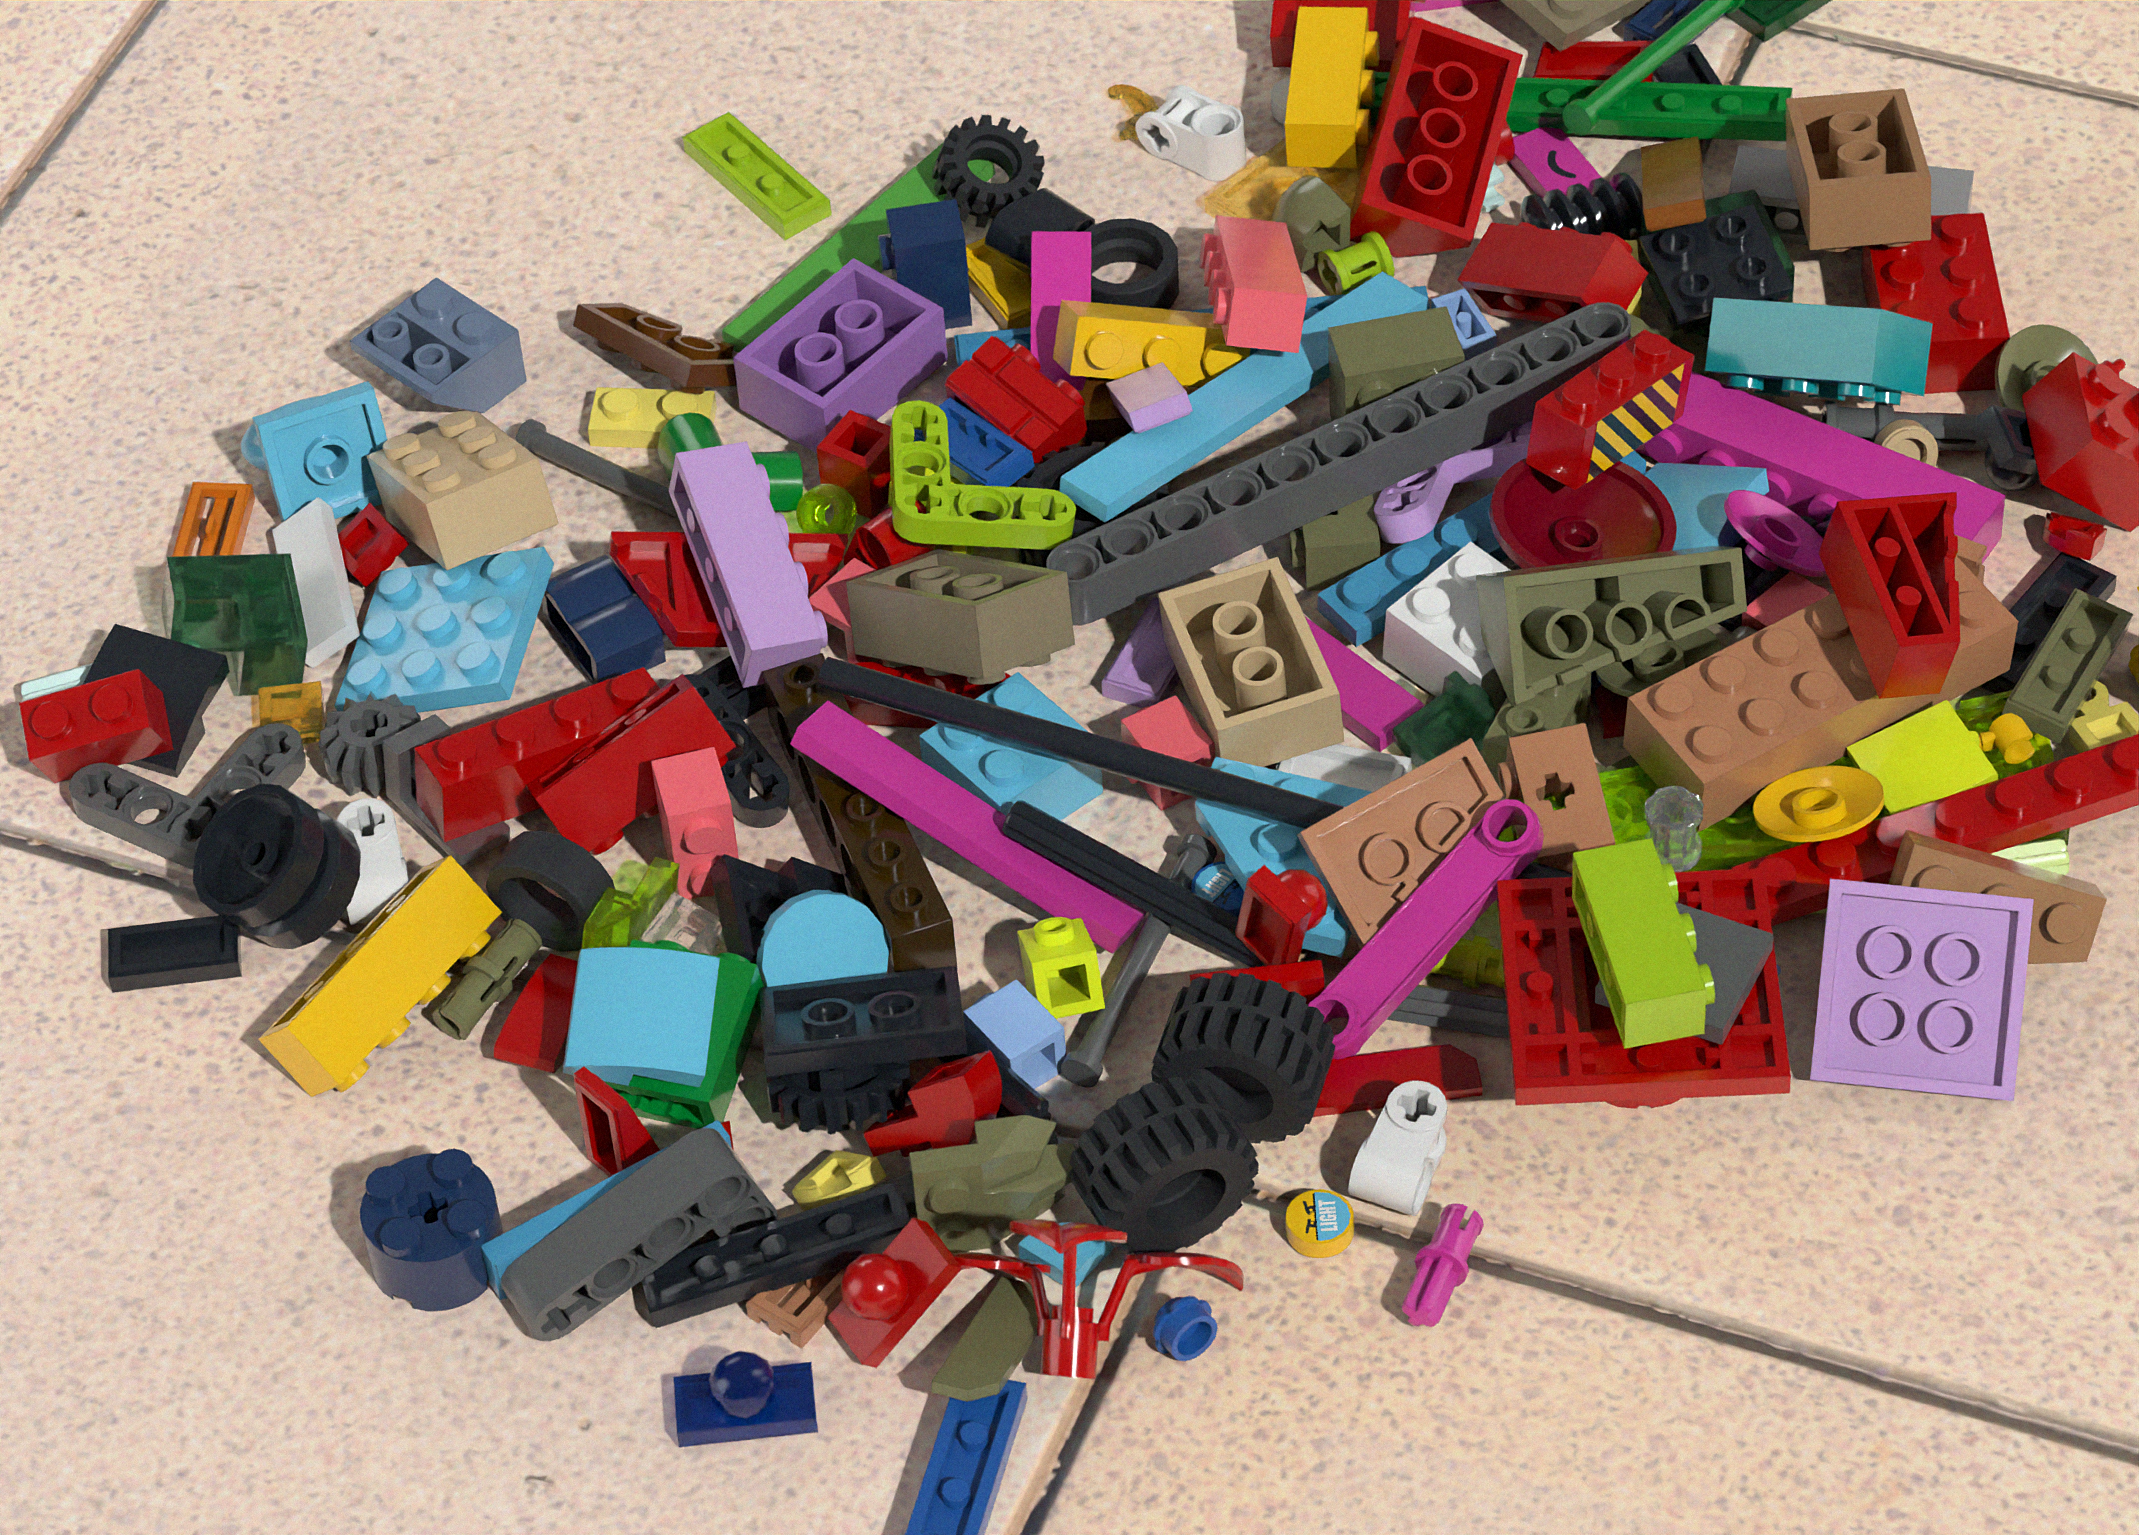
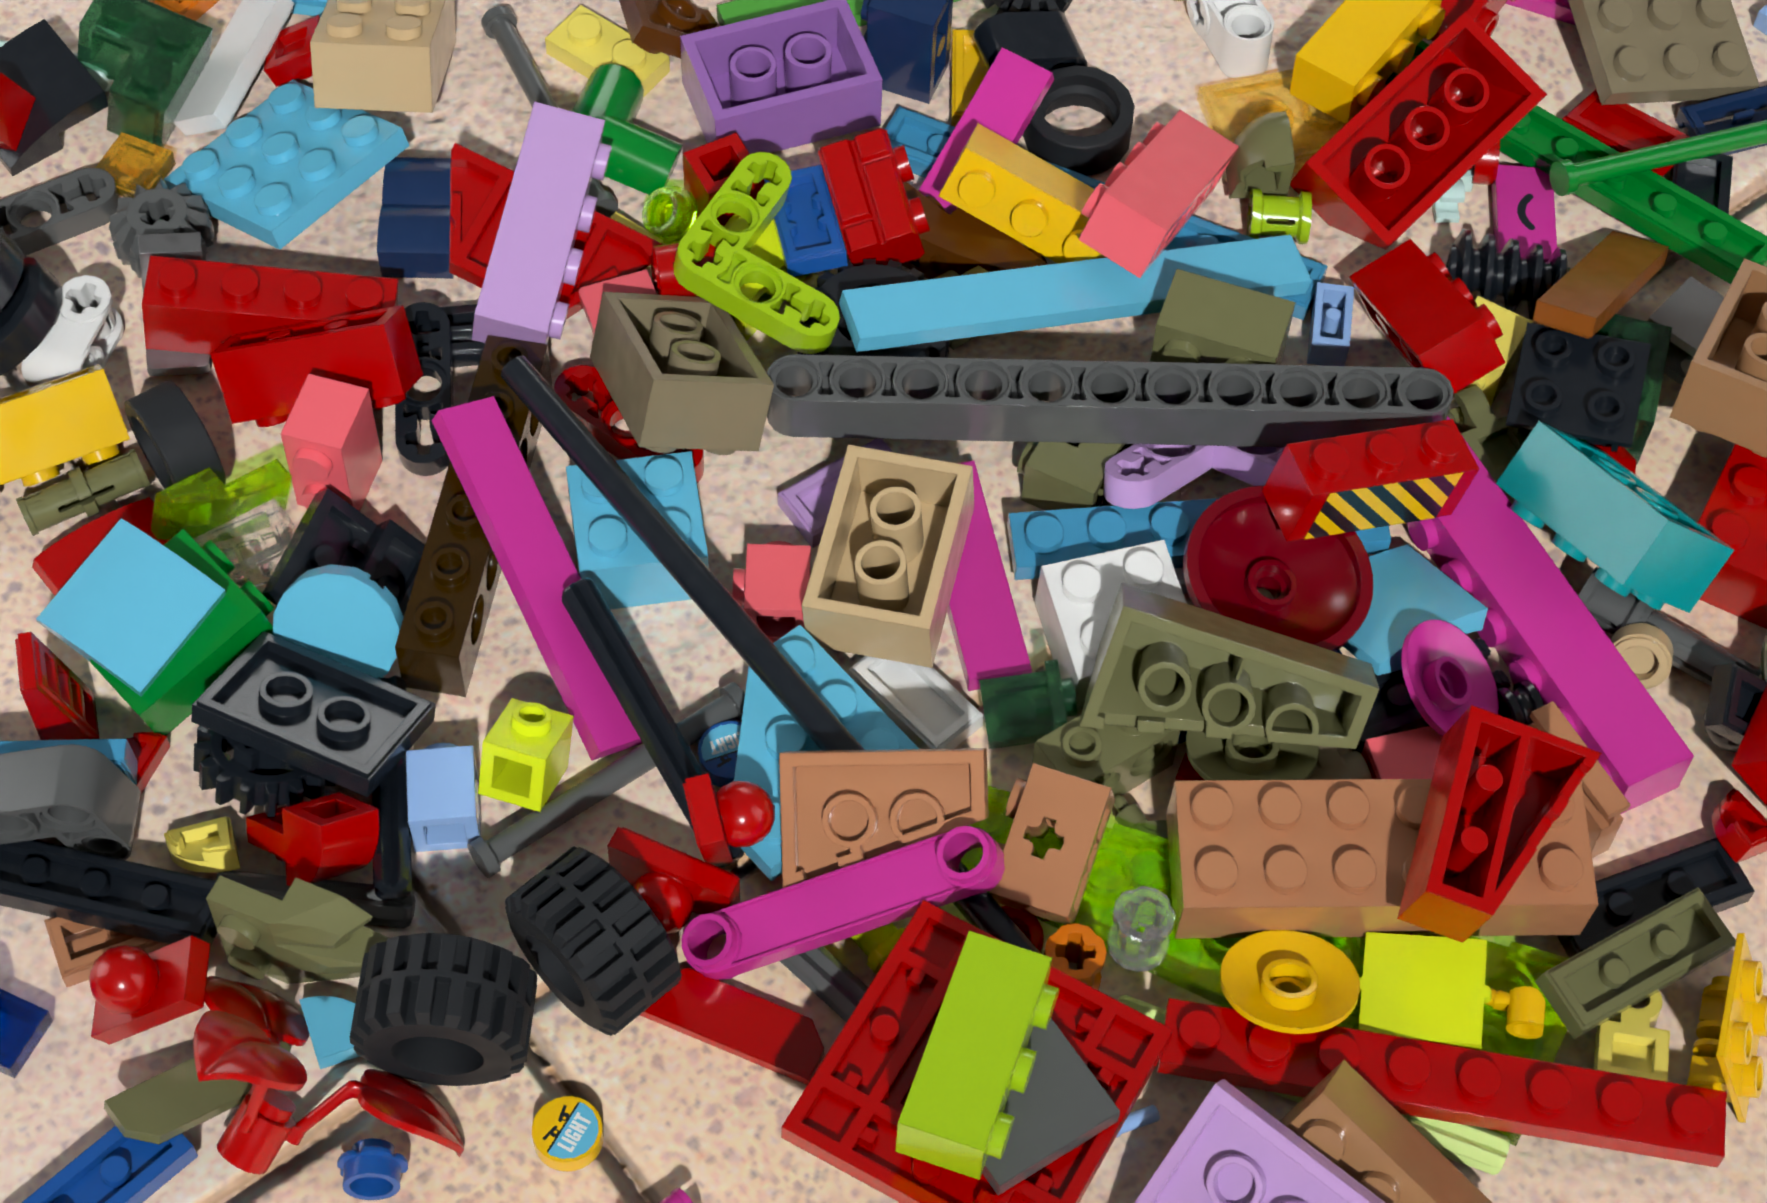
camera: 25 degrees right, 10 degrees up
(1149, 398) = (980, 254): lavender tile -> none
(1403, 1149) = (674, 1116): white piece -> none

